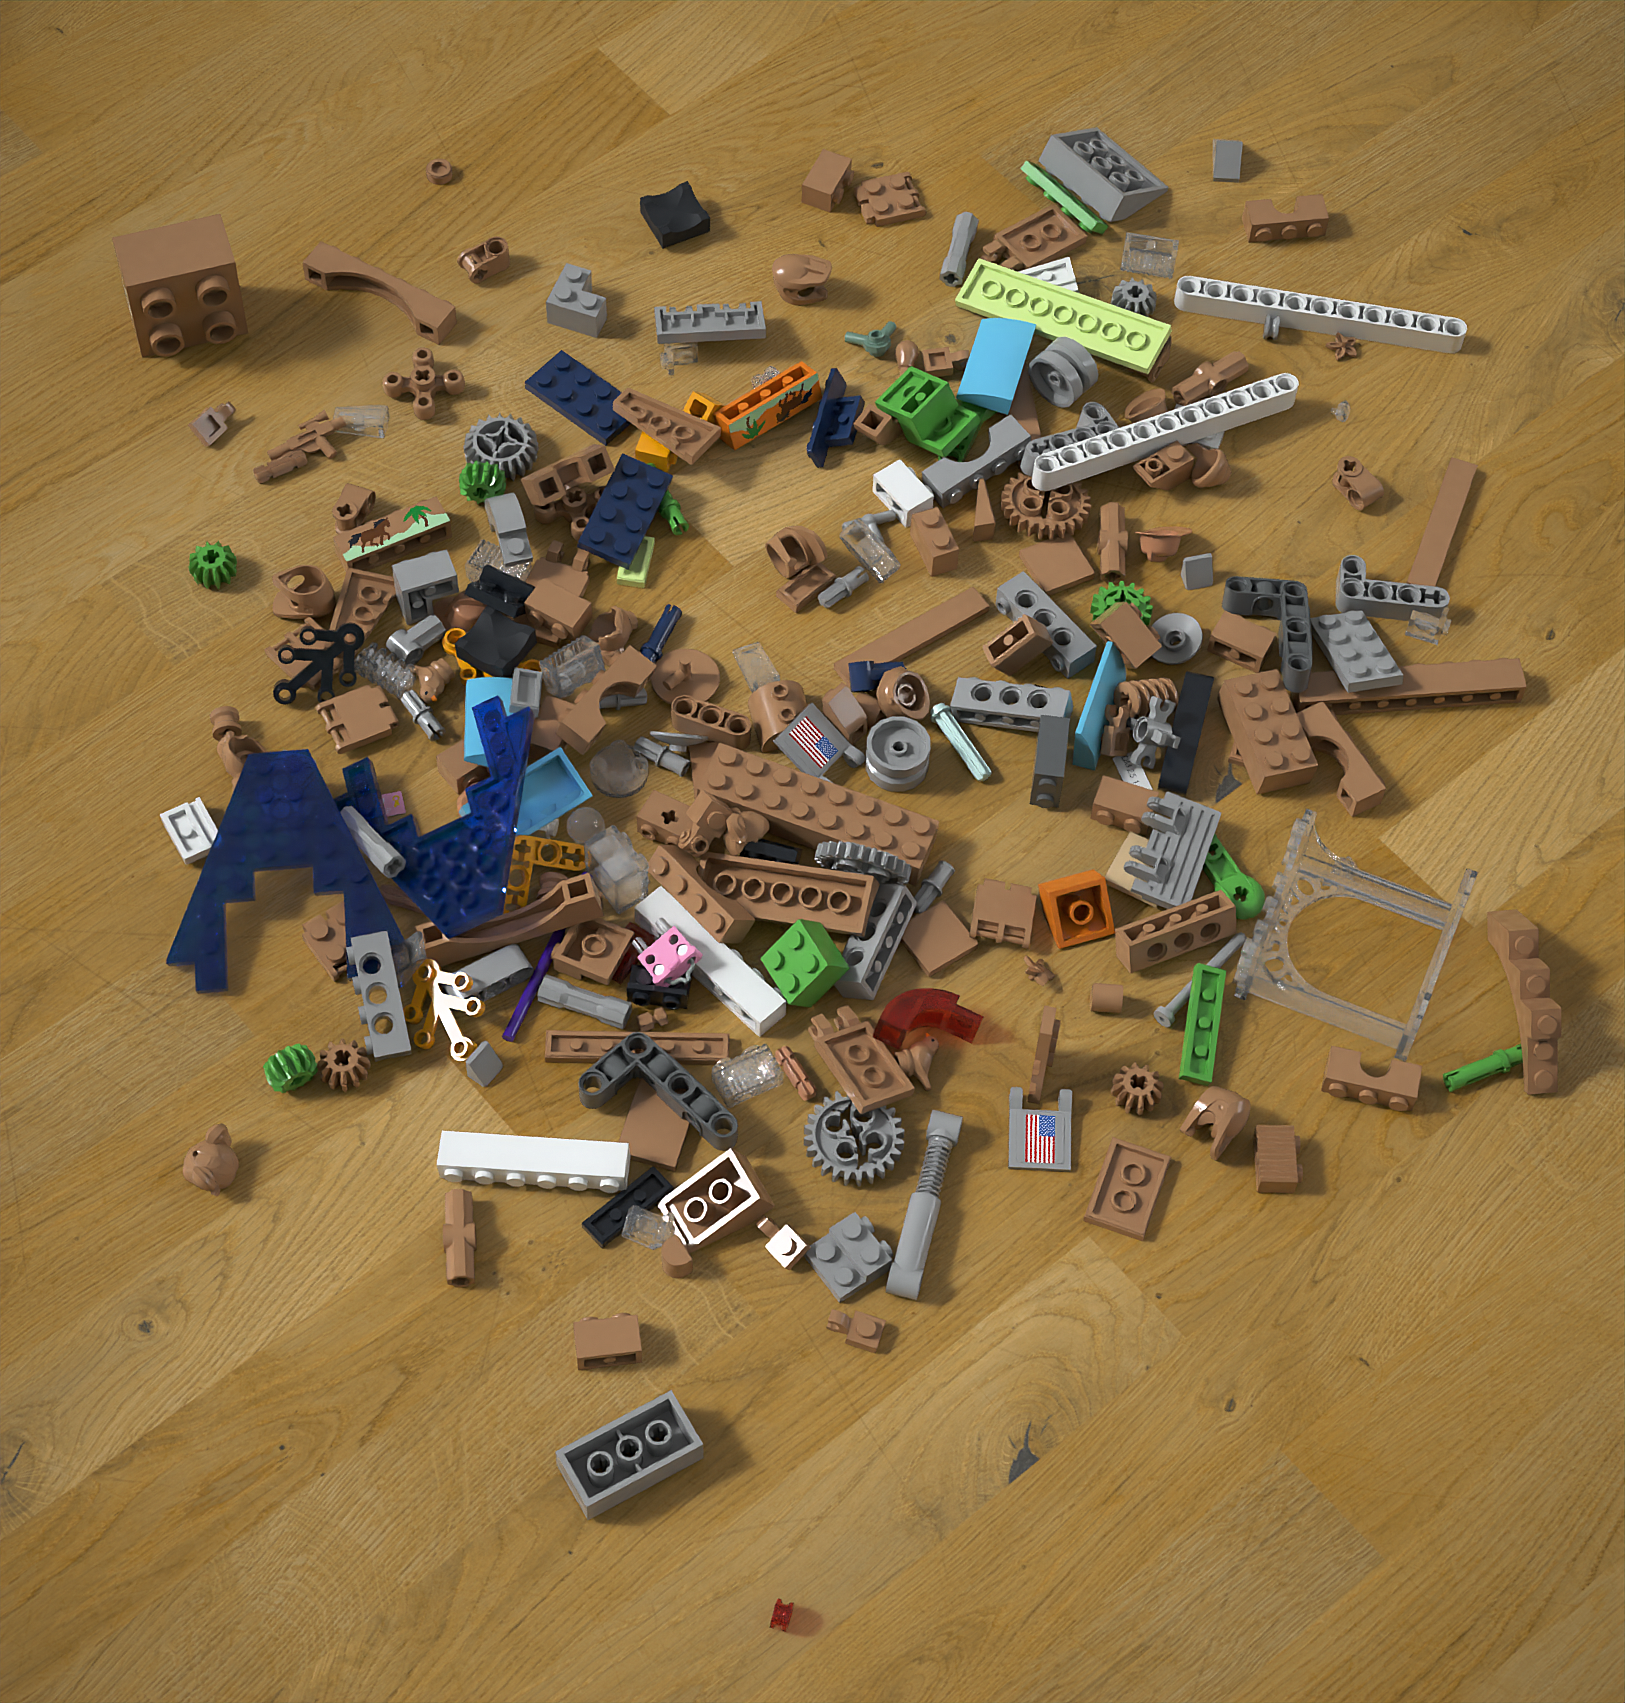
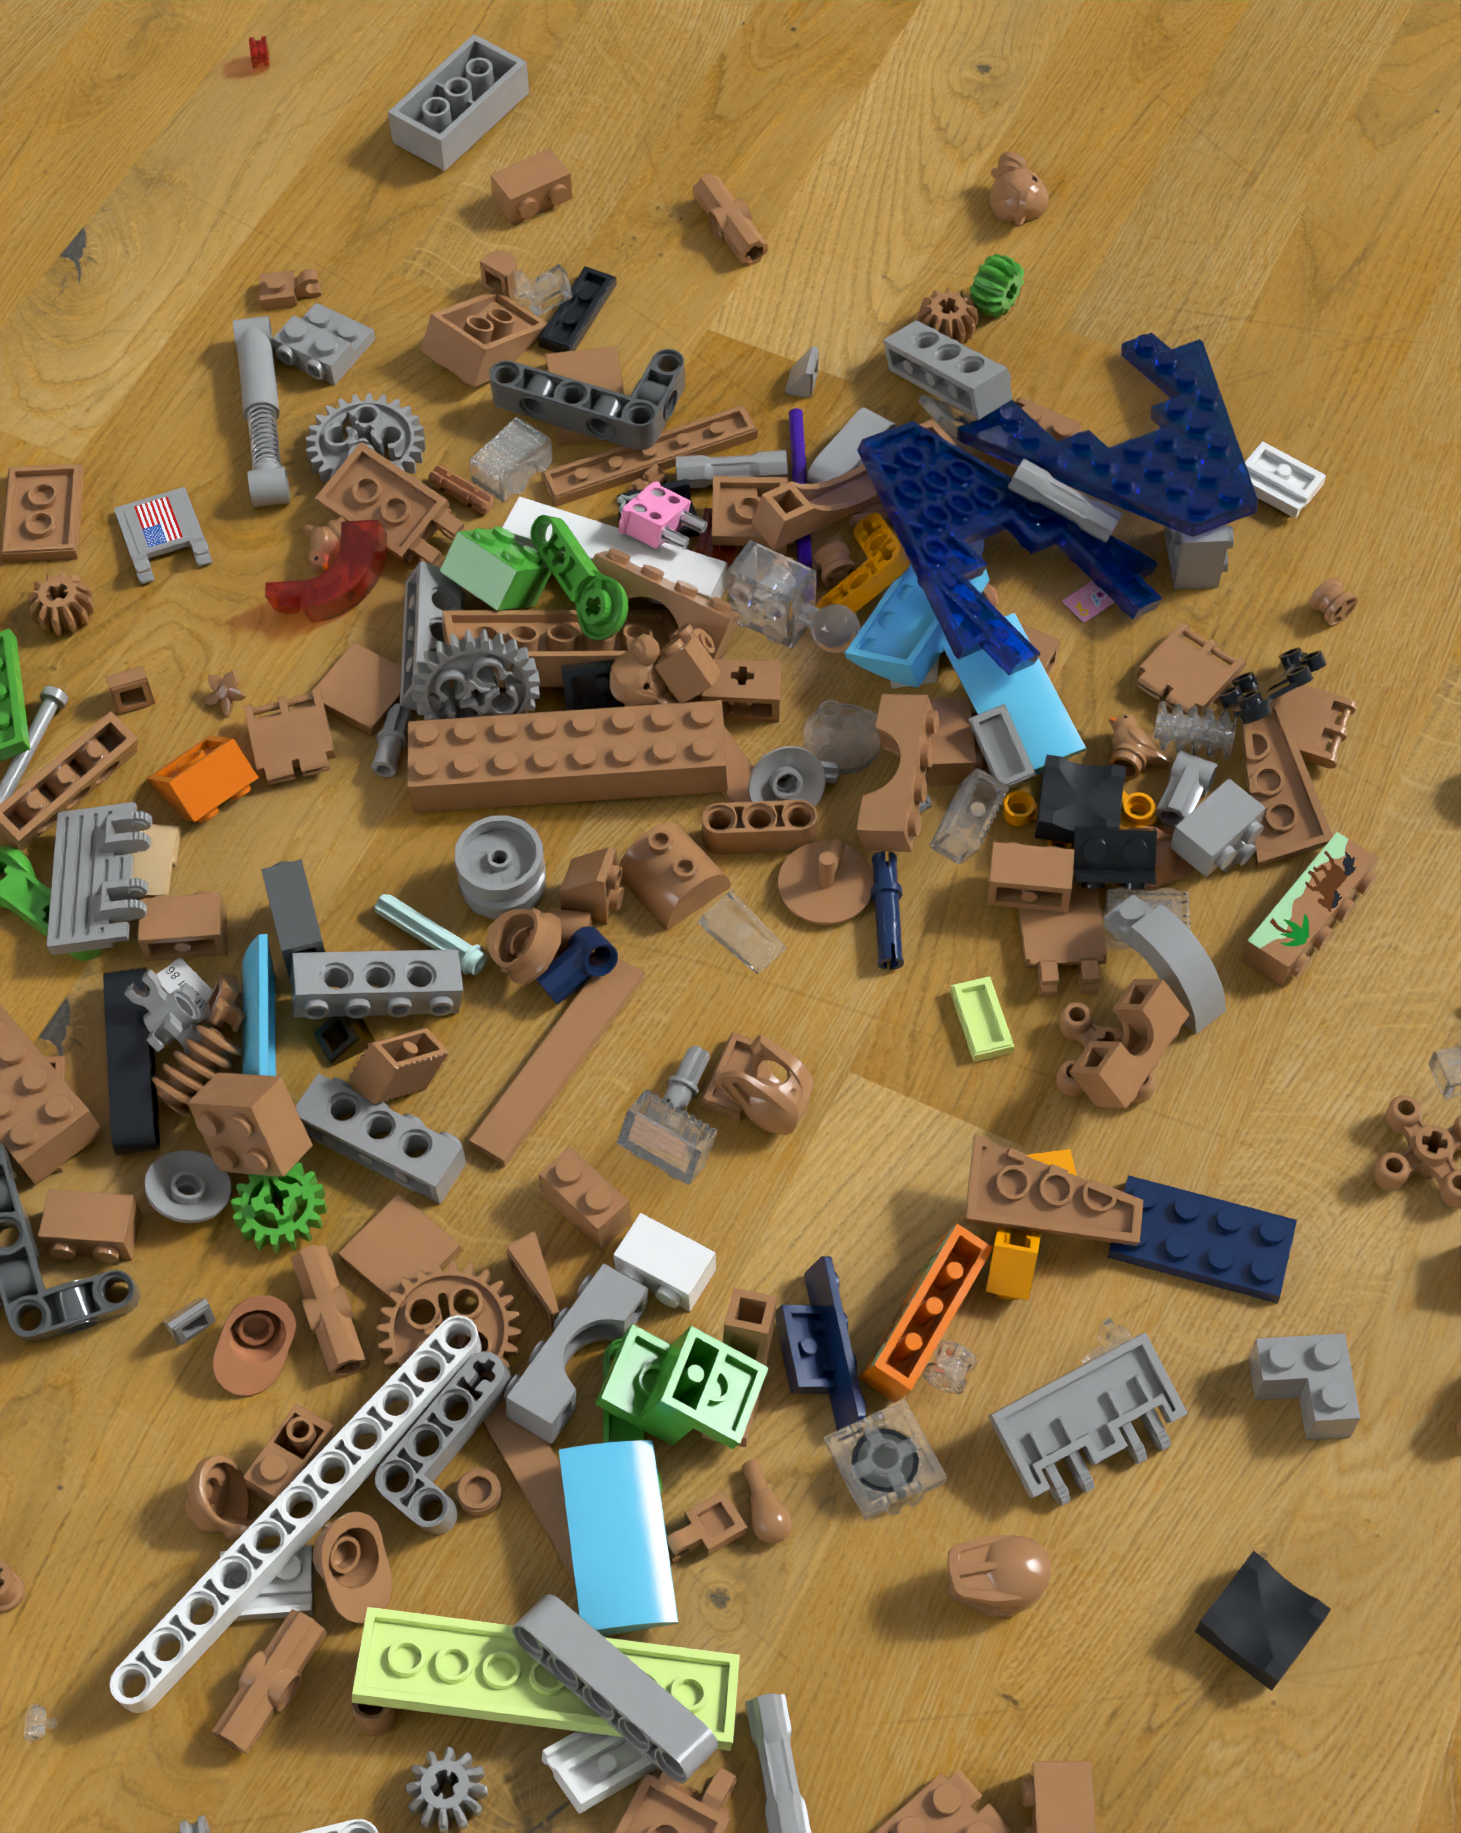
camera: 160 degrees right, 0 degrees up
(235, 751) = (1283, 556): medium nougat hair -> none
(307, 599) = (1359, 783): medium nougat helmet -> none
(353, 507) = (1390, 926): medium nougat piece -> none
(422, 715) = (1114, 703): light grey axle -> none
(441, 1008) = (871, 403): light orange plant -> none
(481, 481) = (1245, 1020): bright green gear -> none
(502, 443) = (1248, 1115): light grey gear -> none
(533, 1161) = (693, 299): white brick -> none
(612, 631) = (950, 893): medium nougat hair -> none
(625, 511) = (1028, 1053): dark blue plate -> none
(671, 512) = (986, 1111): bright green pin -> none
(750, 893) = (581, 579): none -> bright green beam
(785, 1243) = (396, 327): plate -> none
(816, 744) = (606, 822): light grey flag -> none
(832, 345) = (885, 1461): none -> clear piece
(873, 520) = (692, 1205): light grey piece -> none
(876, 341) = (825, 1517): sand green piece -> none
(1031, 287) = (615, 1688): none -> light grey beam
(1044, 1052) = (176, 573): medium nougat wing -> none
(1060, 424) = (478, 1492): none -> medium nougat tile
(1063, 372) = (504, 1558): light grey wheel -> none

